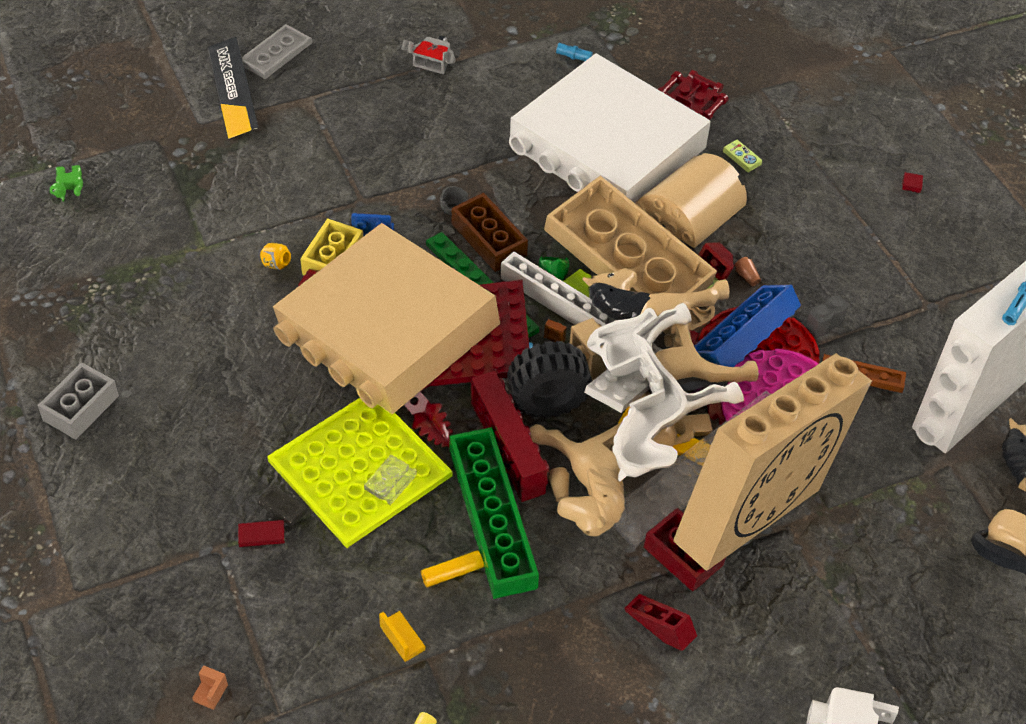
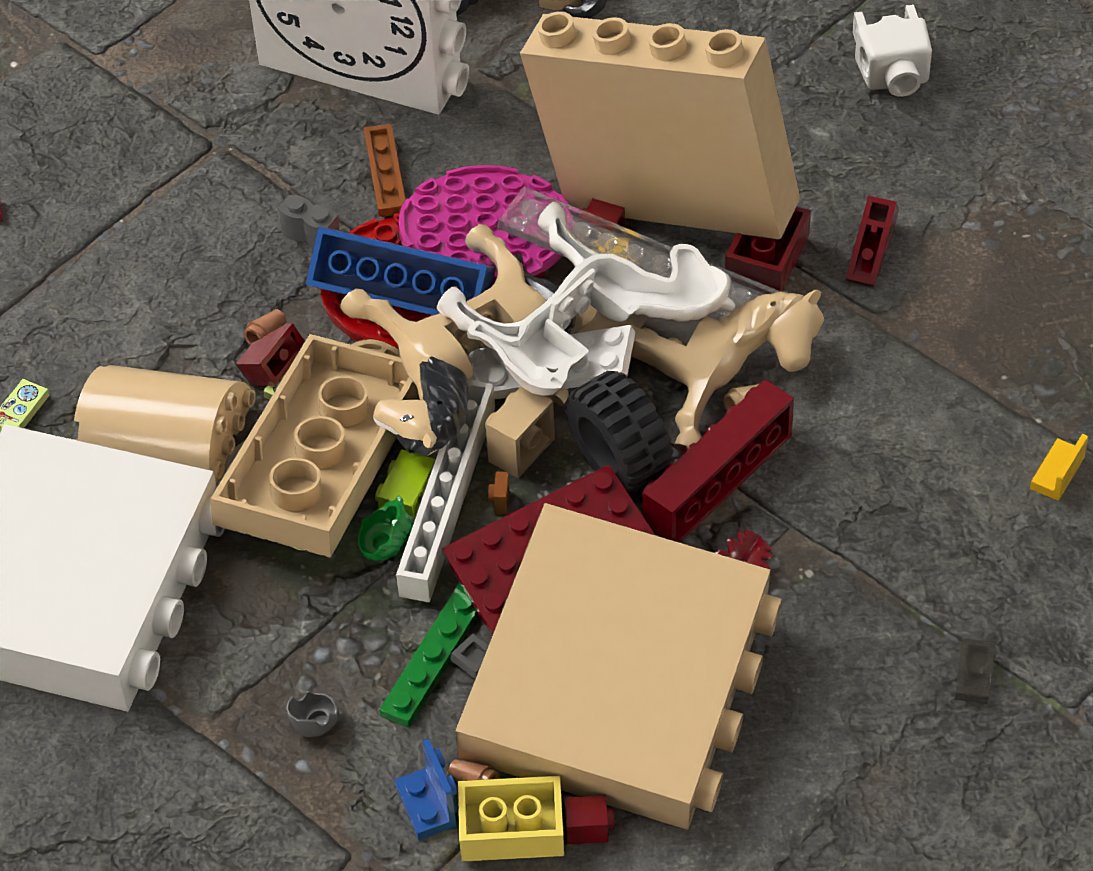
camera: 110 degrees left, 0 degrees up
(261, 533) = (1026, 677): dark red tile -> none
(341, 454) = (864, 616): neon yellow plate -> none
(390, 479) = (868, 556): clear plate -> none
(452, 568) = (939, 455): yellow piece -> none
(488, 230) = (357, 637): reddish brown brick -> none
(493, 513) = (836, 440): green brick -> none

